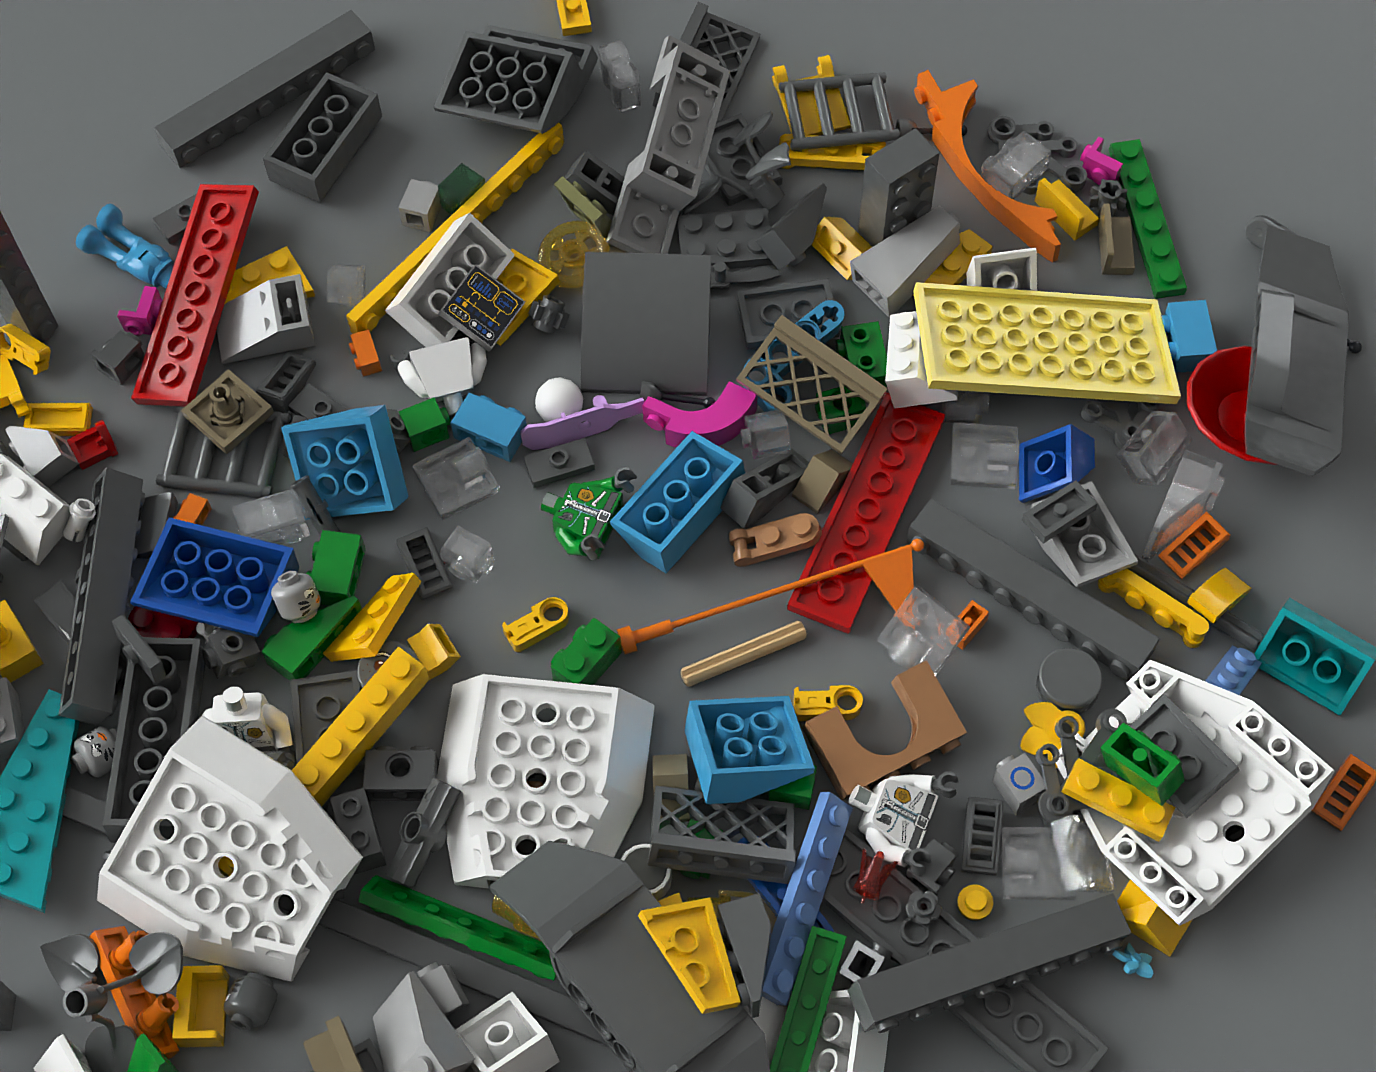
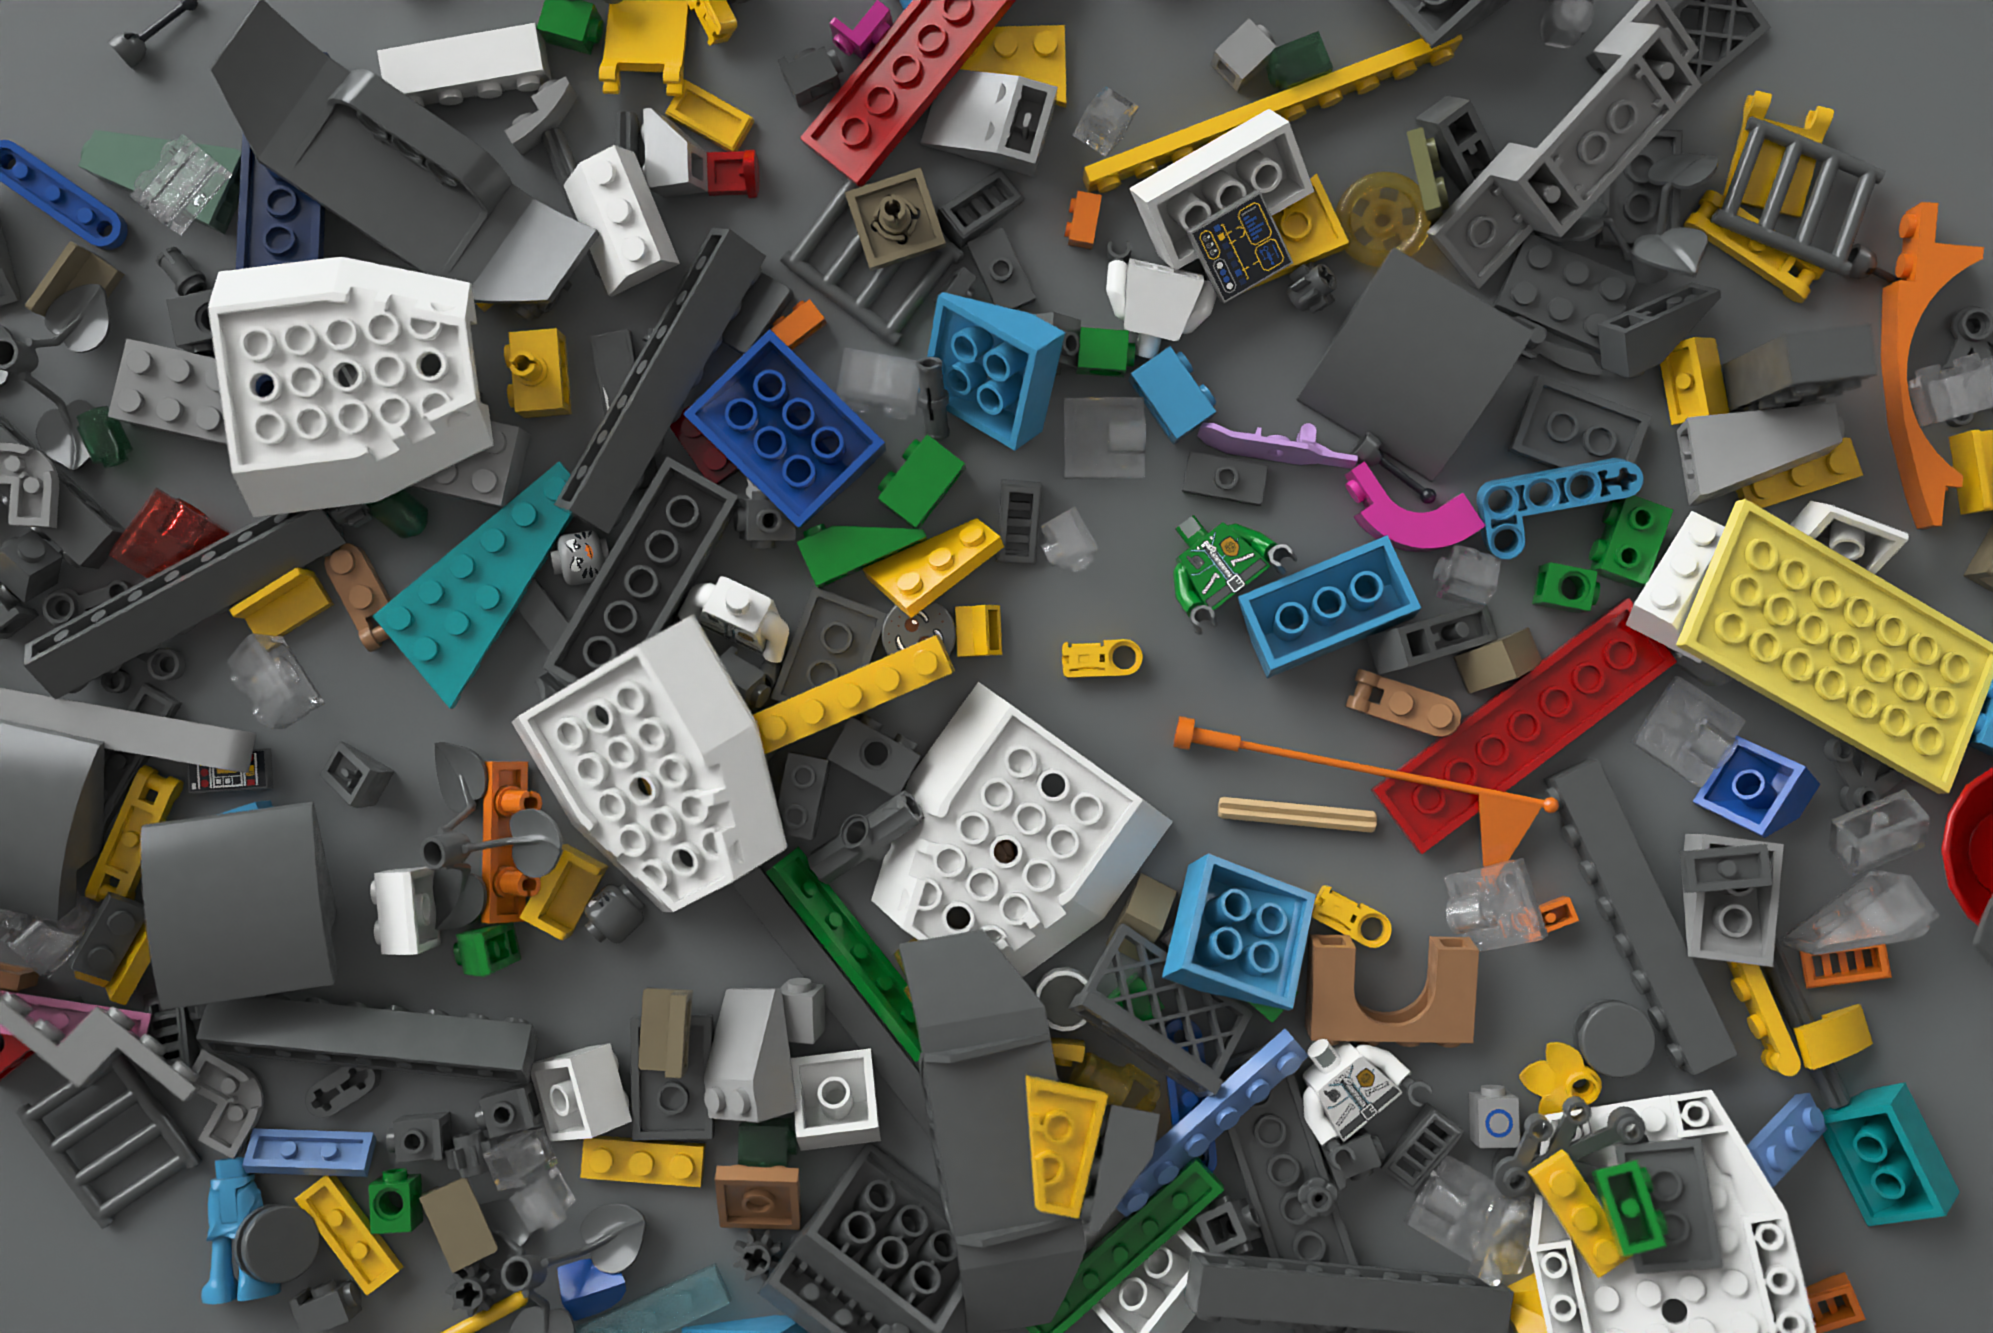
camera: 30 degrees right, 25 degrees up
(80, 514) = (677, 274): white pin -> none
(138, 650) = (663, 484): dark grey plate -> none
(296, 596) = (860, 504): light grey head -> none
(556, 397) = (1265, 403): white hair -> none
(588, 655) = (1129, 734): green brick -> none
(828, 362) = (1583, 540): dark tan fence -> none
(870, 877) = (1281, 1149): clear red piece -> none
(975, 902) = (1373, 1210): yellow plate -> none

